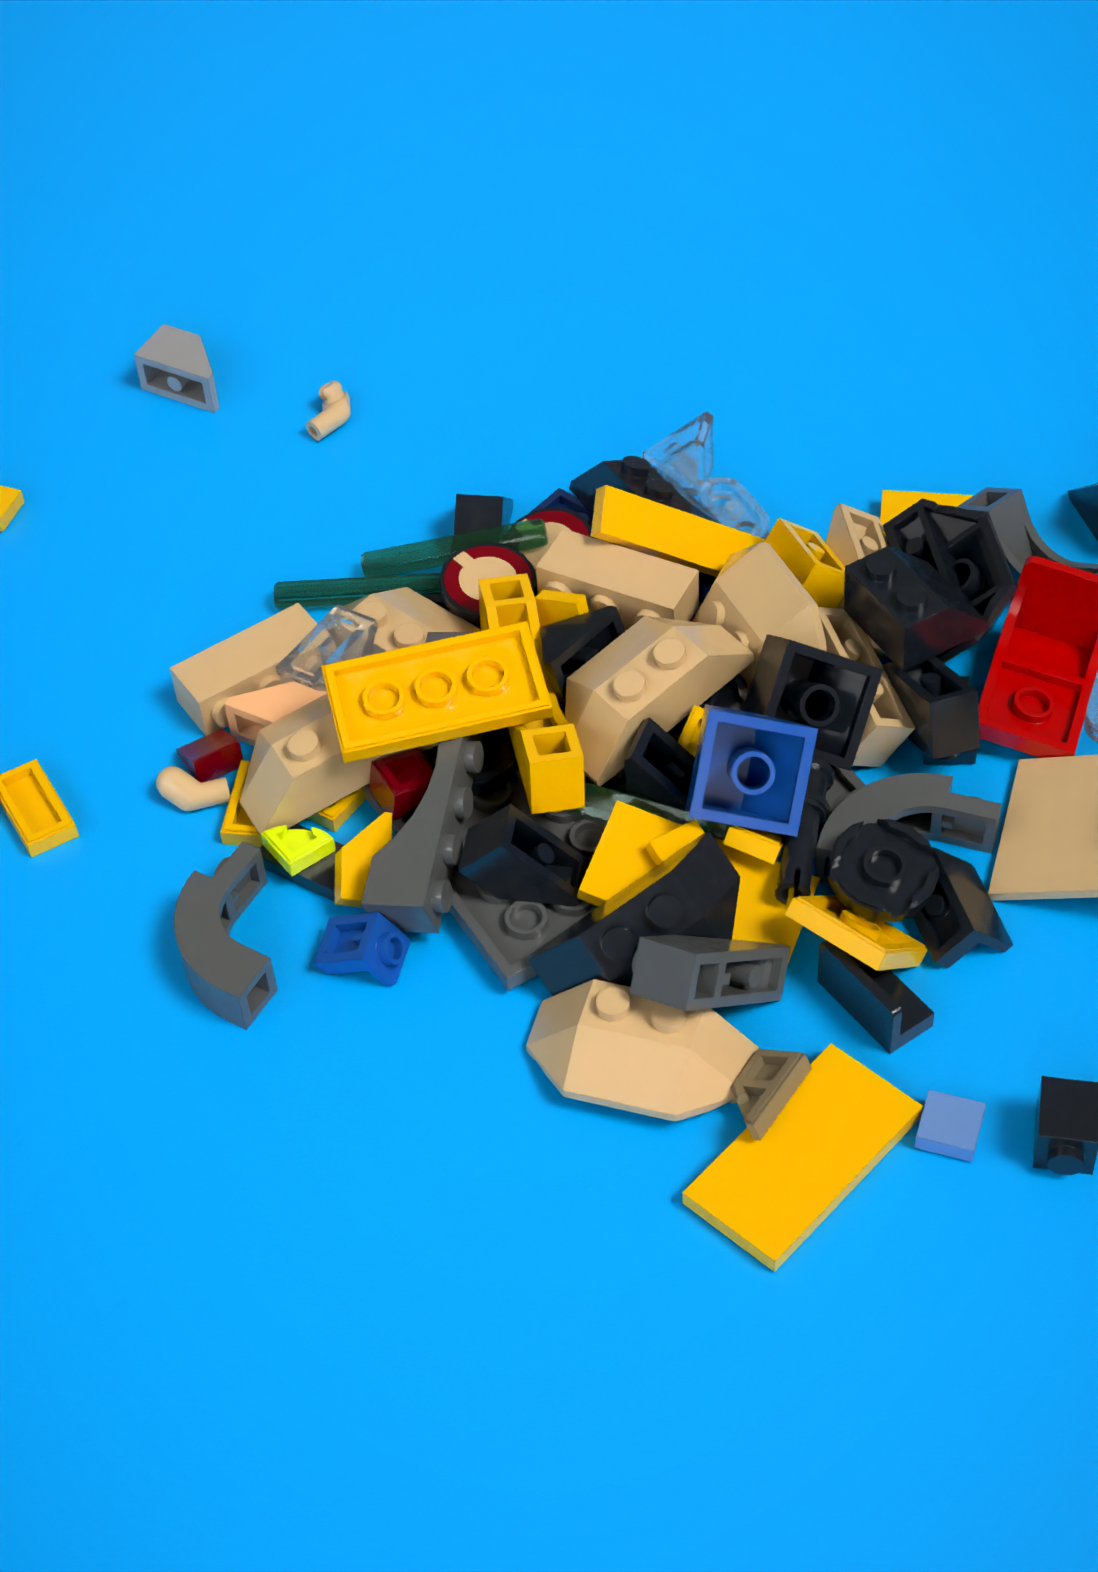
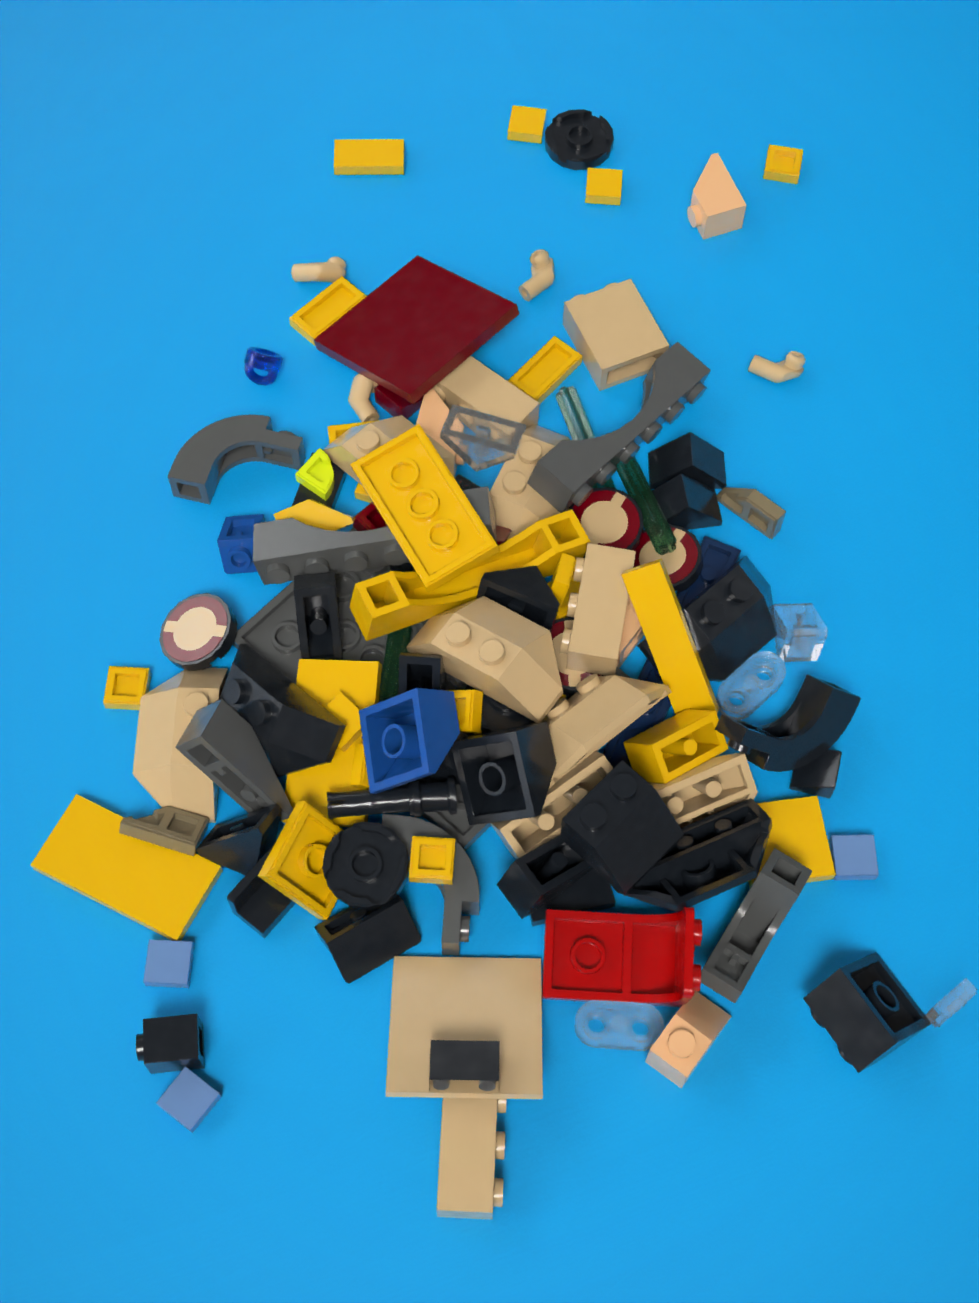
camera: 70 degrees right, 15 degrees up
(49, 351) = (783, 164): none -> yellow tile
(72, 408) = (716, 201): none -> light nougat slope
(87, 879) = (263, 360): none -> clear blue tile
(92, 585) = (542, 275): none -> tan arm
(124, 705) = (416, 328): none -> dark red tile
(177, 367) = (787, 251): light grey slope -> none
(218, 531) = (614, 333): none -> tan brick
(229, 604) = (546, 369): none -> yellow tile
(423, 573) = (576, 465): none -> dark grey arch
(425, 510) = (690, 457): none -> black slope
(484, 1013) = (198, 632): none -> tile
(512, 463) = (753, 509): none -> dark tan tile
(533, 1119) = (126, 687): none -> yellow tile
(803, 473) = (801, 734): none -> black arch
(808, 999) = (242, 840): none -> black slope
(853, 482) = (818, 776): none -> black slope
(893, 799) = (432, 860): none -> yellow tile
(958, 477) = (854, 857): none -> medium blue tile

